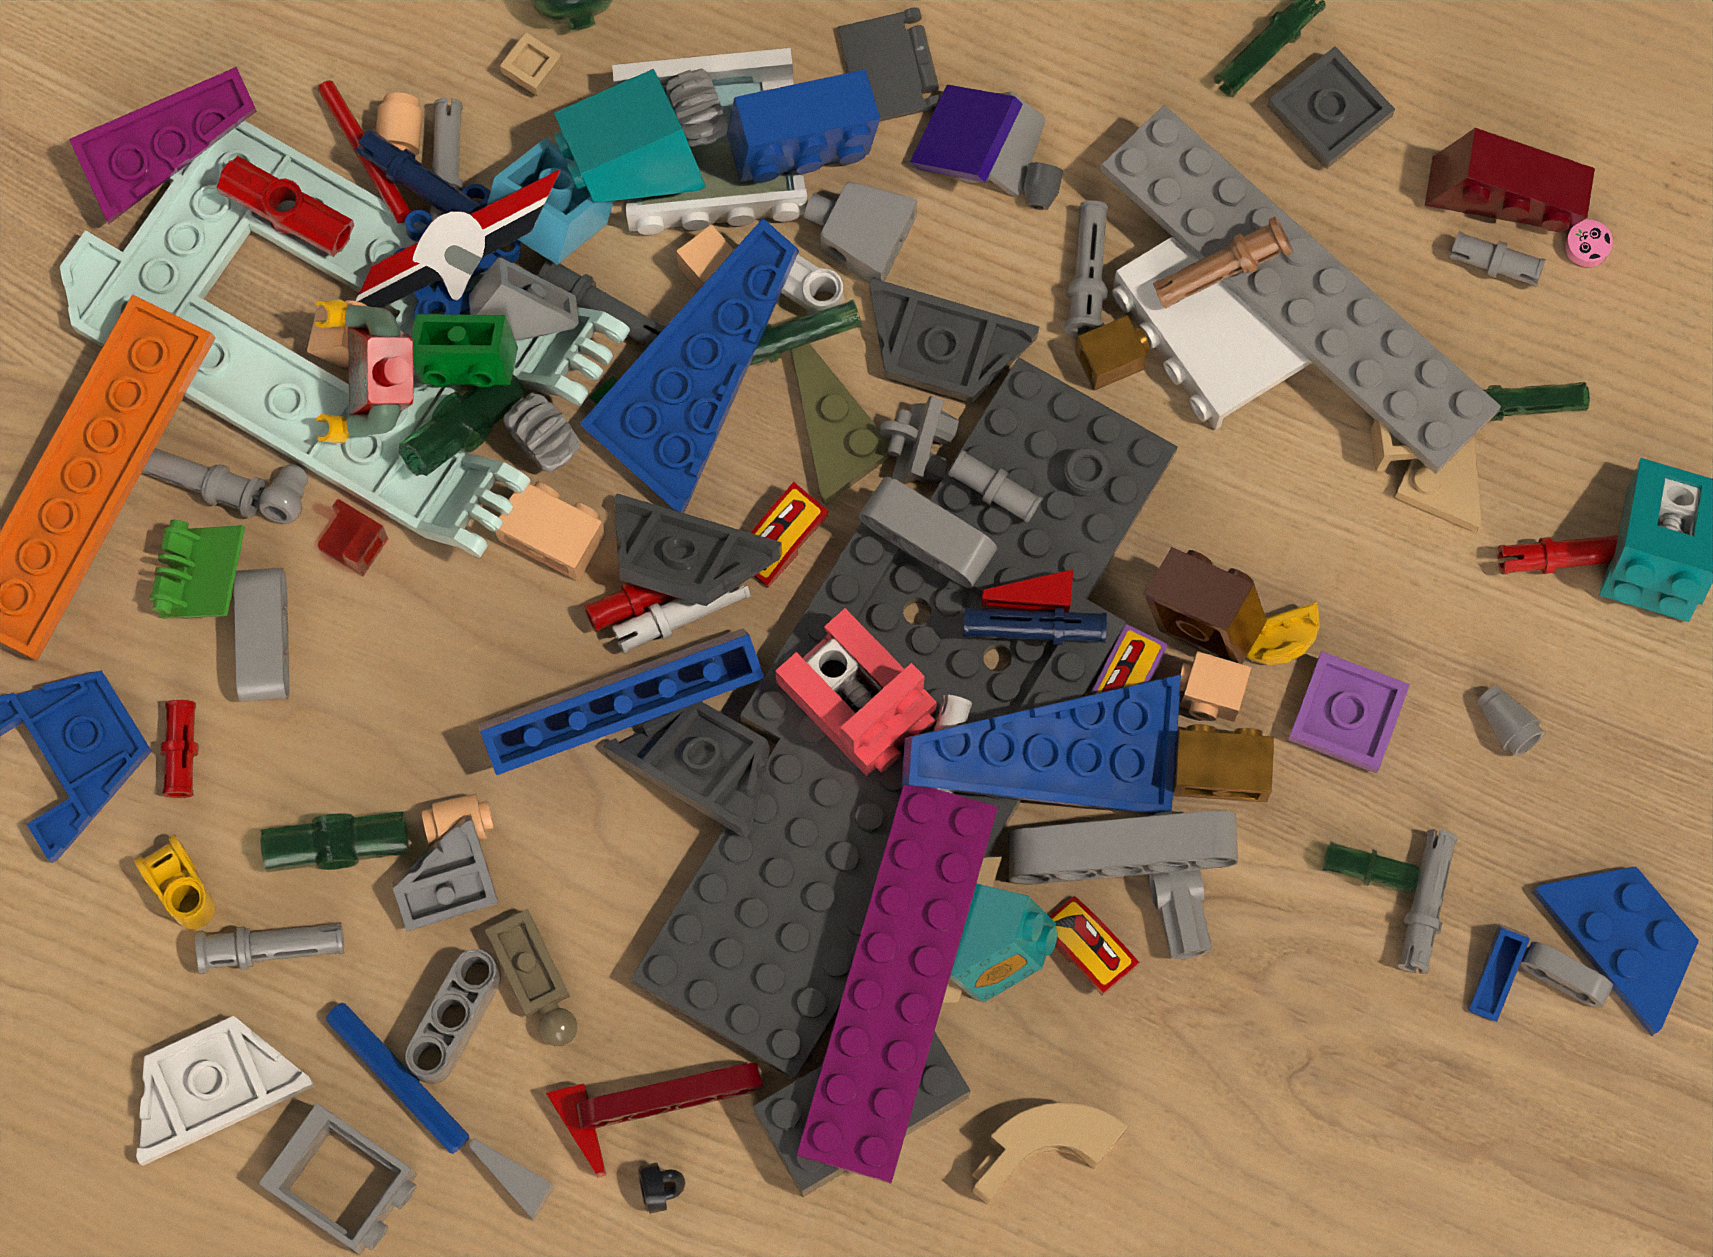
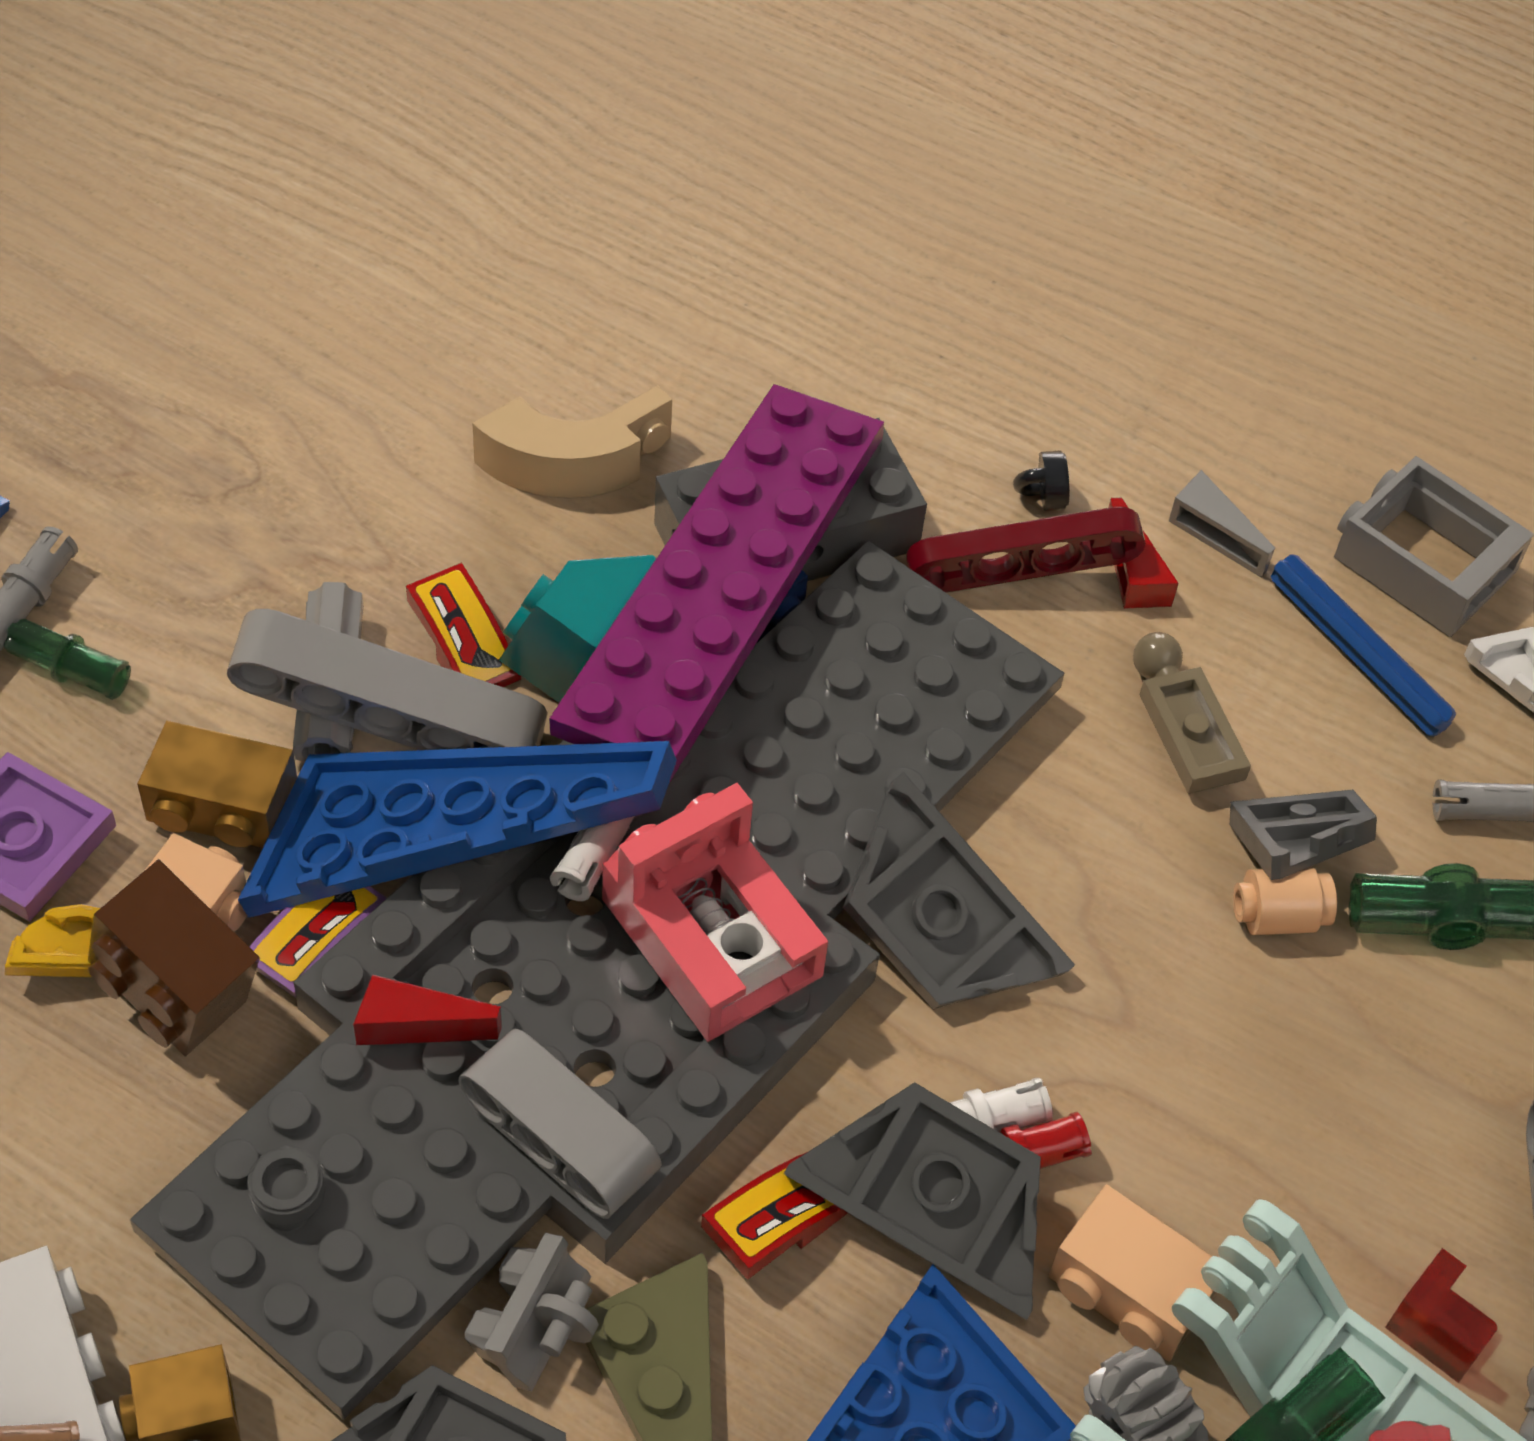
camera: 175 degrees left, 20 degrees down
(453, 992) = (1293, 682): light grey beam -> none
(621, 701) = (1048, 997): blue brick -> none
(995, 486) = (437, 1179): light grey pin -> none
(1035, 625) = (430, 968): dark blue pin -> none

